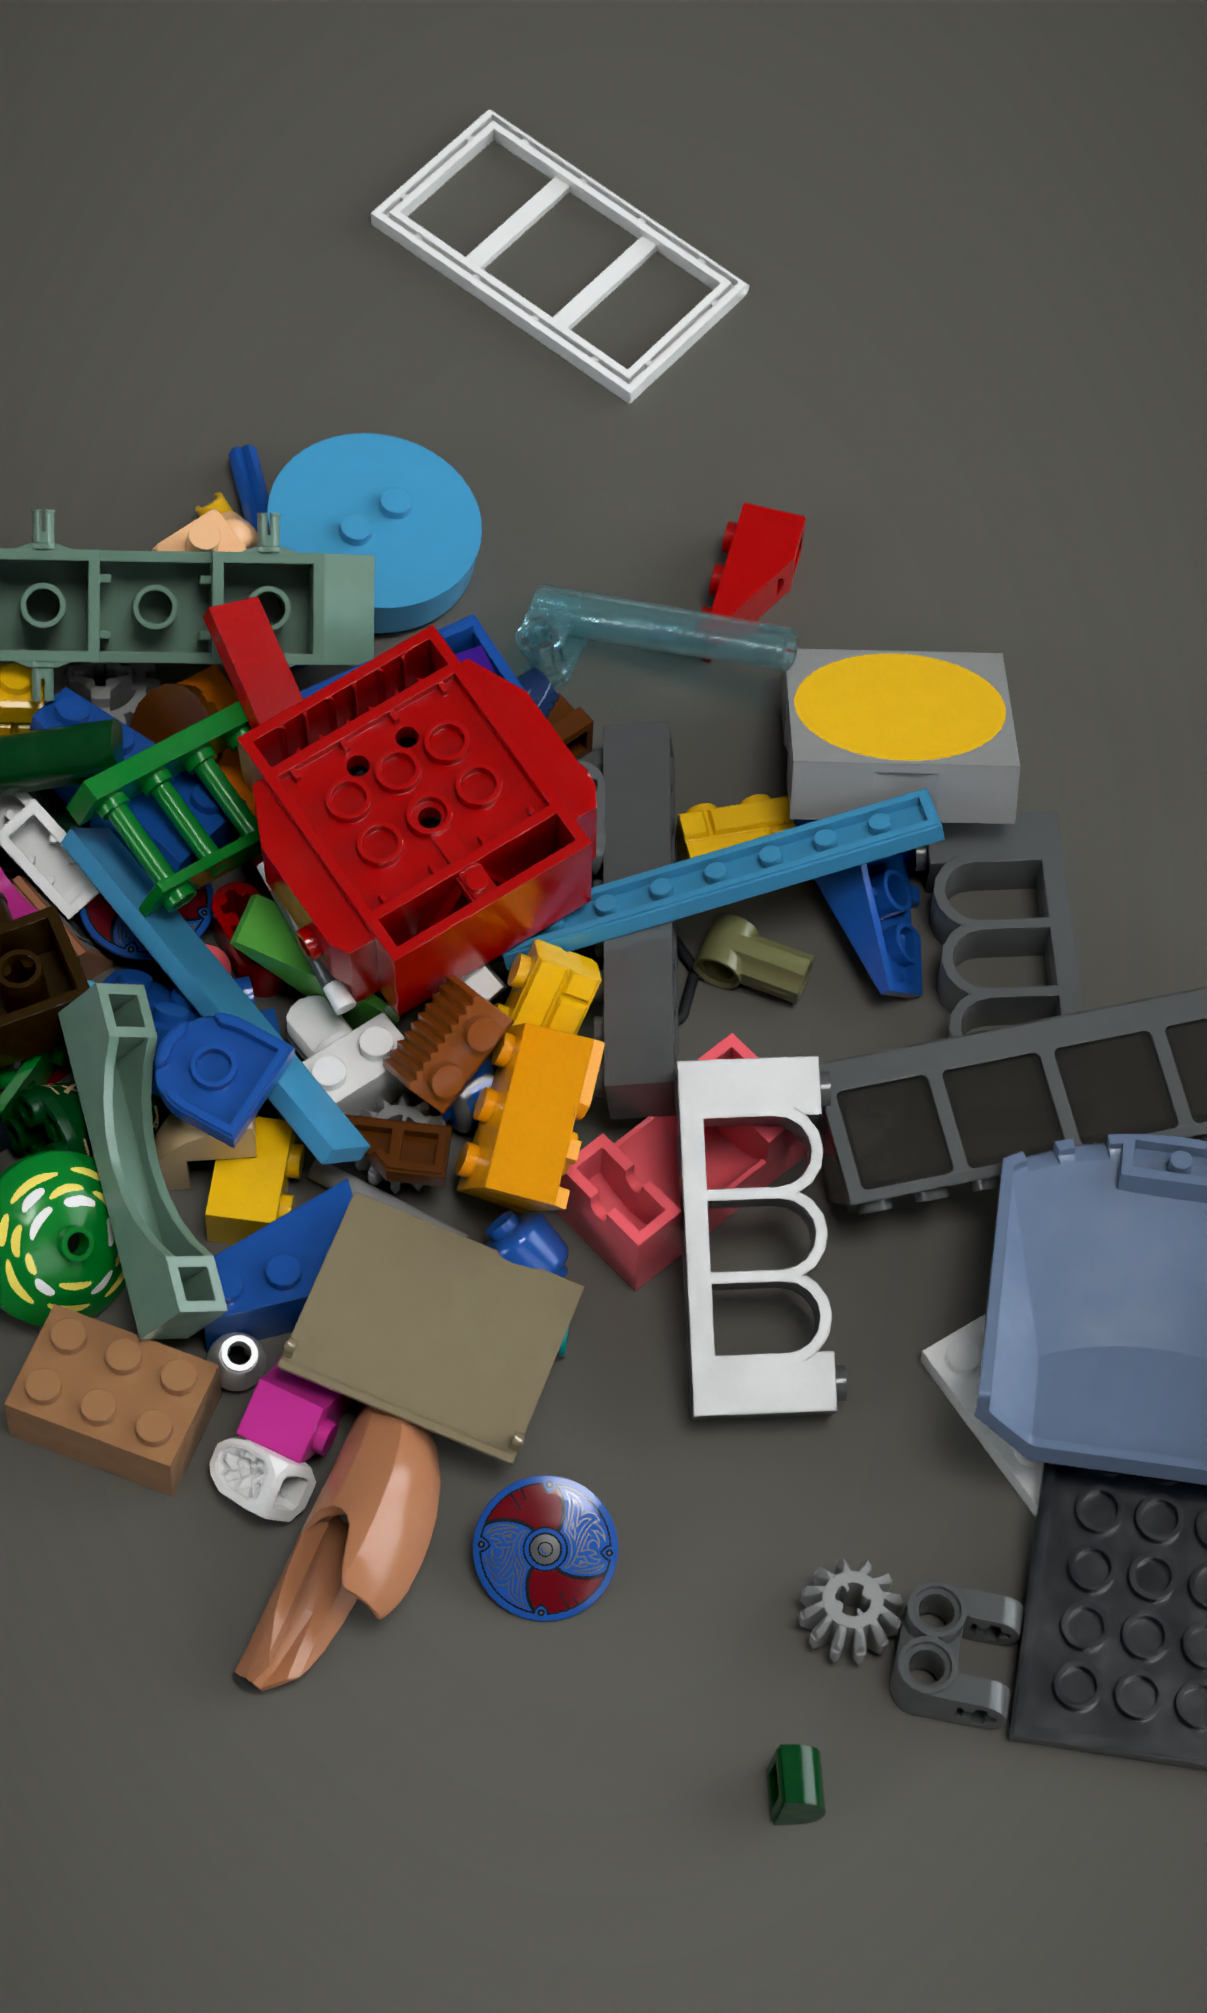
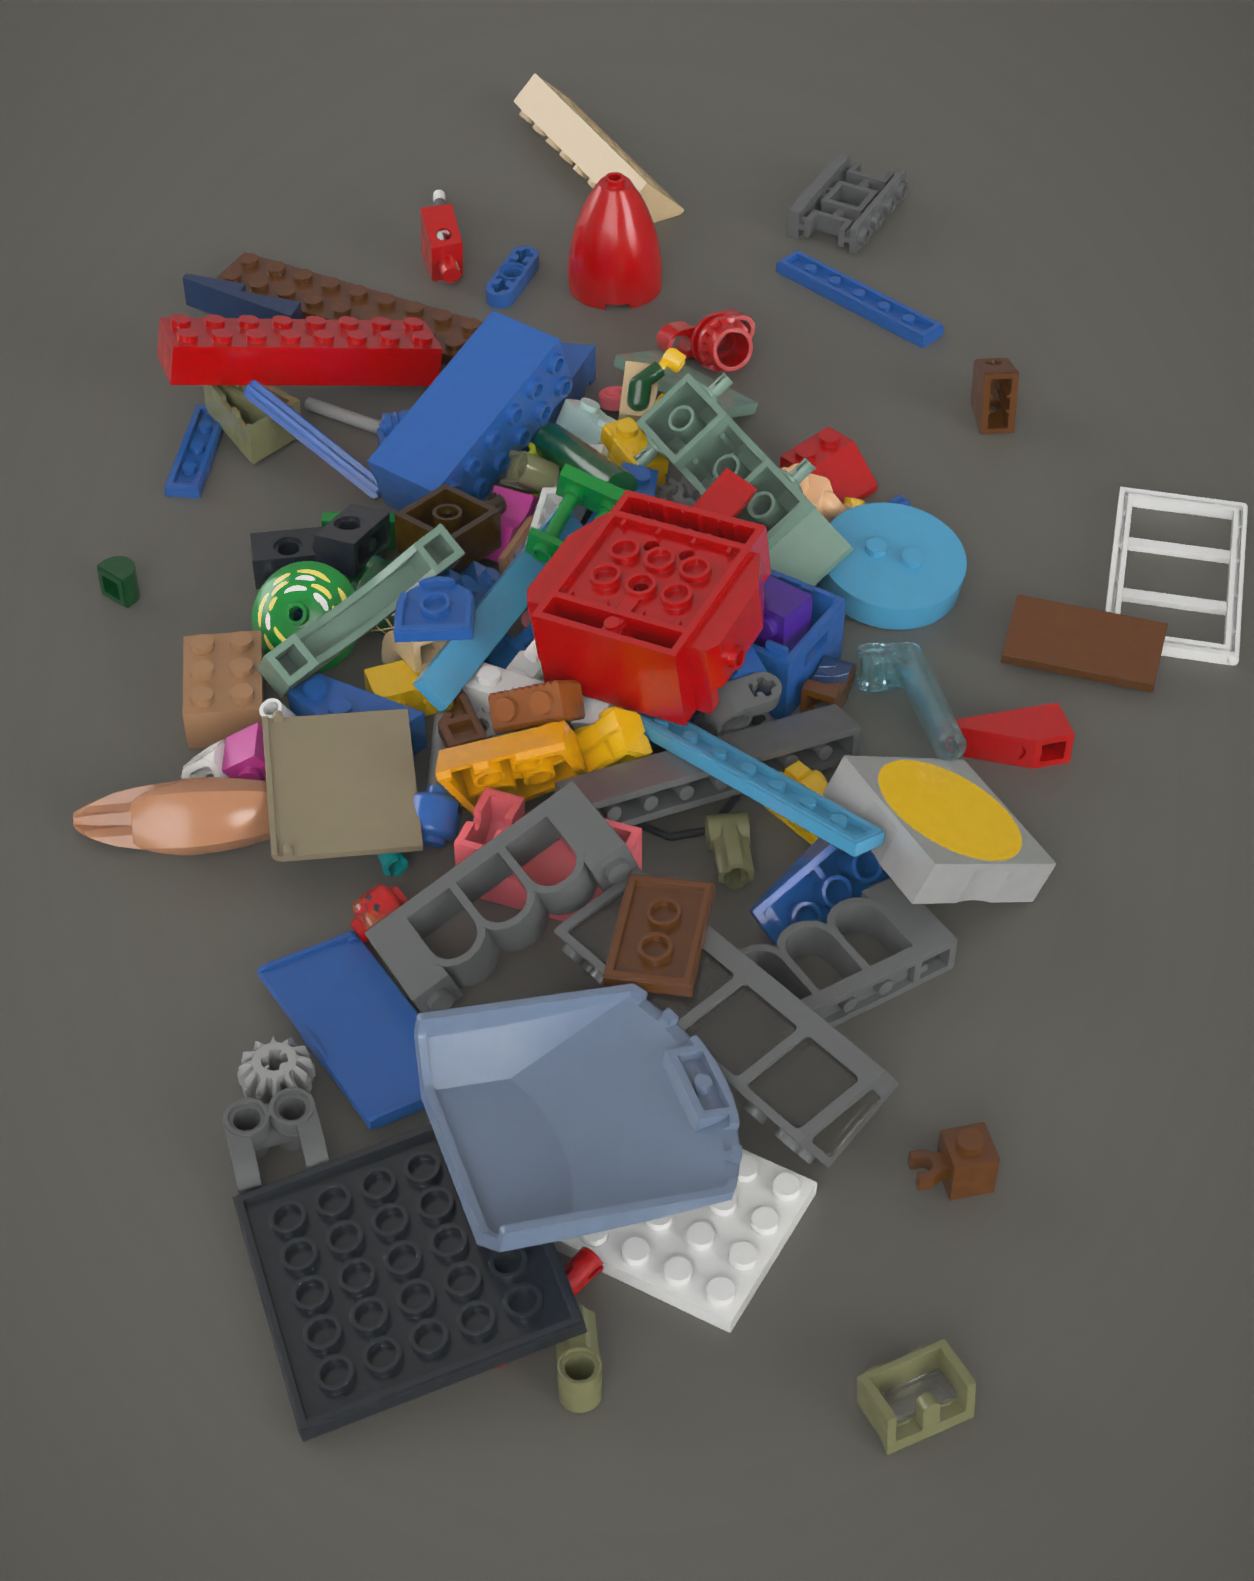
camera: 65 degrees right, 15 degrees down
(112, 234) = (994, 385): none -> reddish brown torso
(132, 495) = (837, 460): none -> red slope
(545, 1548) = (235, 907): shield -> none
(640, 417) = (1084, 643): none -> reddish brown tile
(653, 1387) = (374, 907): none -> red head
(795, 1785) = (133, 1093): dark green brick -> none
(816, 1489) = (352, 1024): none -> blue door
(939, 1095) = (660, 934): none -> reddish brown tile

